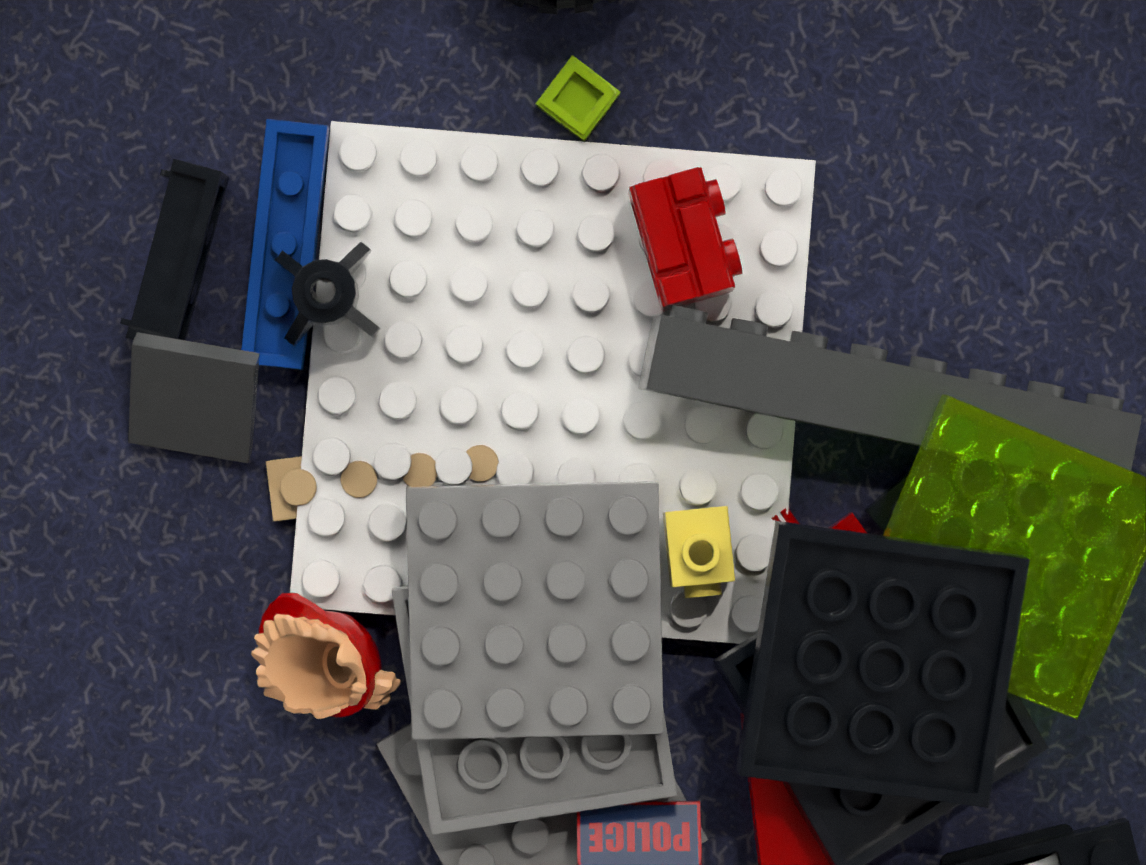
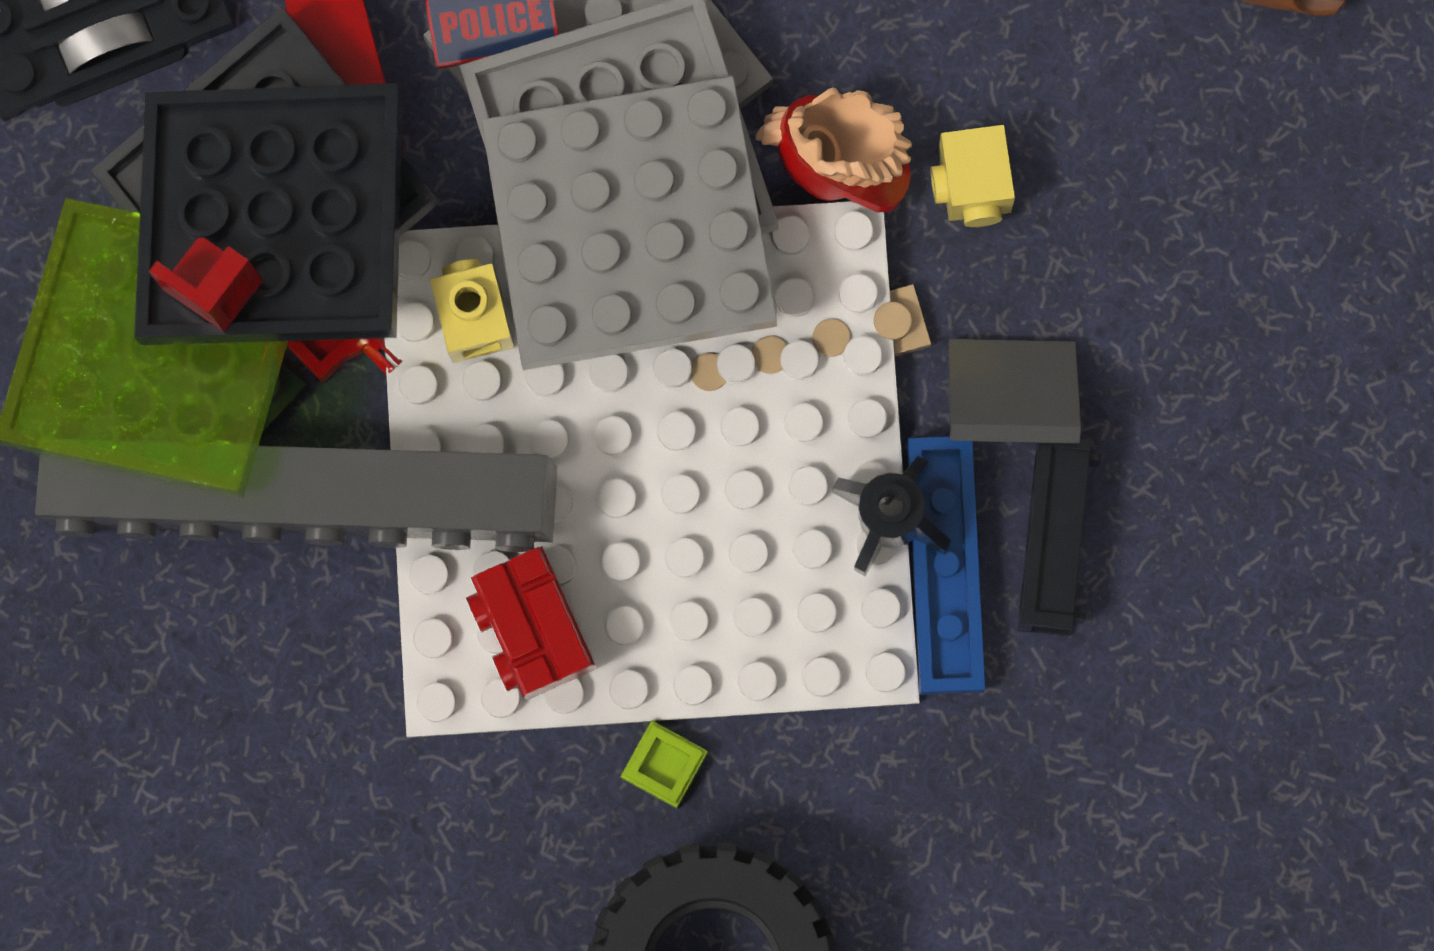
camera: 175 degrees right, 10 degrees down
(197, 616) = (974, 176): none -> light yellow brick
(950, 599) = (210, 282): none -> red panel

